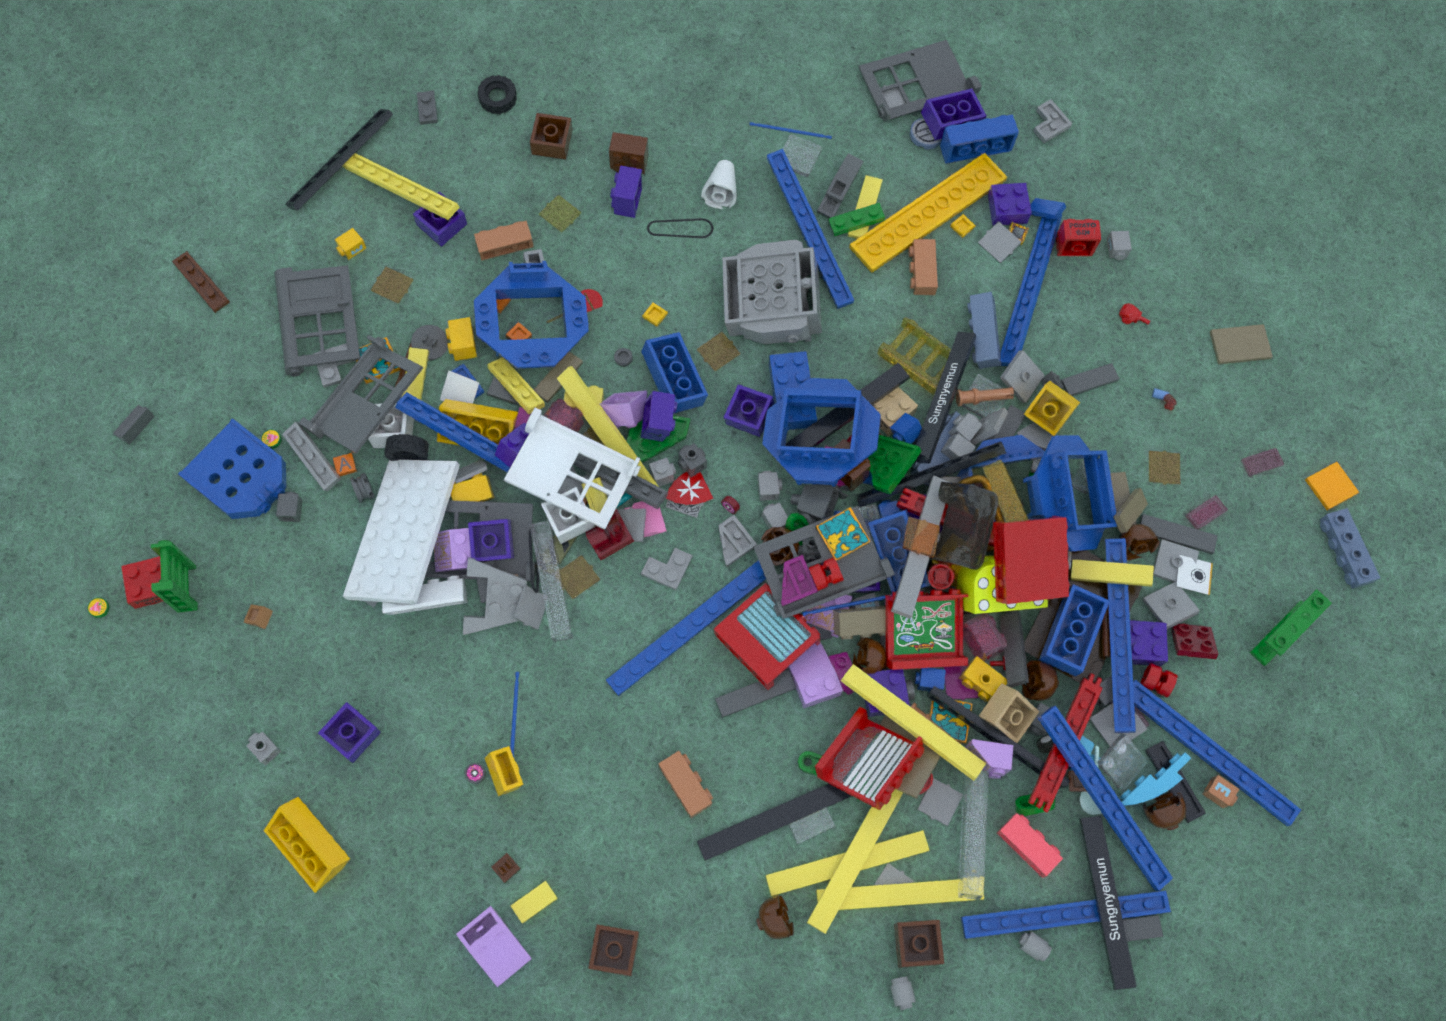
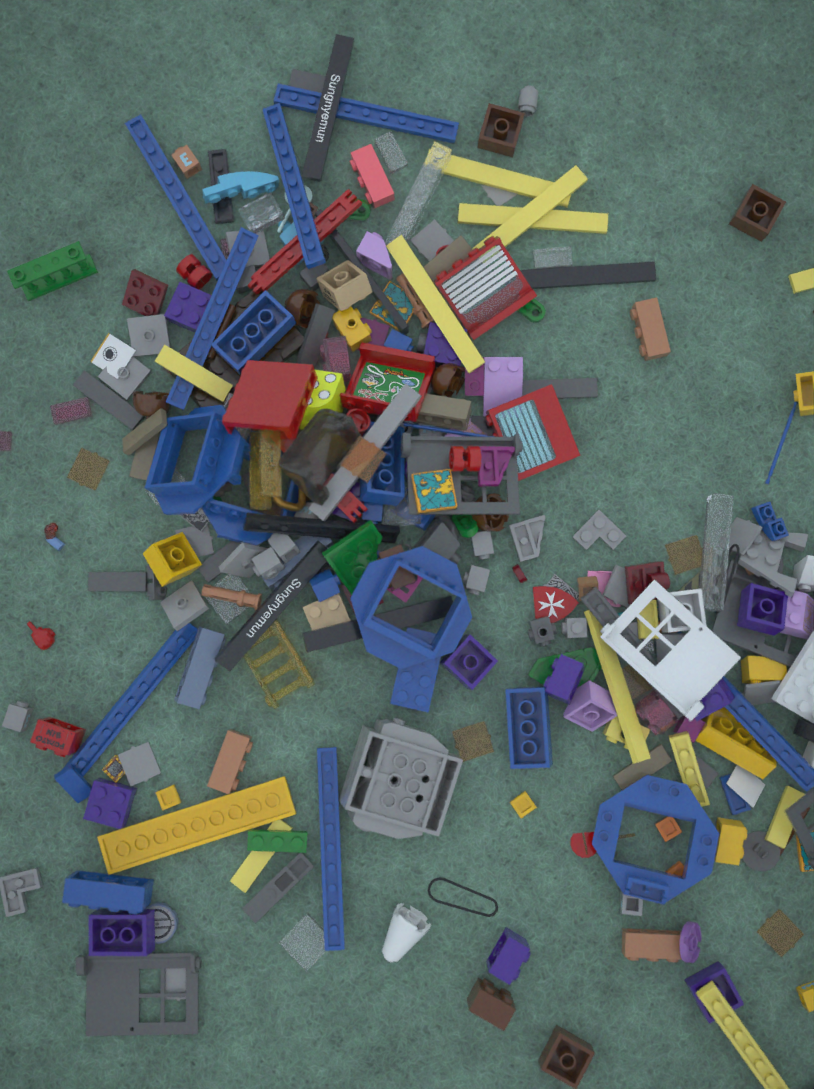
camera: 155 degrees left, 15 degrees up
(473, 249) = (689, 941): none -> medium lavender tile
(505, 631) = (771, 526): none -> blue slope
(559, 213) = (582, 959): clear yellow piece -> none
(623, 357) = (570, 767): dark grey tile -> none
(662, 515) = (585, 584): none -> medium nougat slope
(686, 629) = (603, 468): blue plate -> none
(774, 918) = (614, 189): reddish brown cylinder -> none
(790, 130) = (302, 978): blue piece -> none
(1021, 880) = (391, 152): none -> clear plate
(1035, 946) = (403, 97): light grey brick -> none
(1168, 813) = (241, 159): reddish brown cylinder -> none

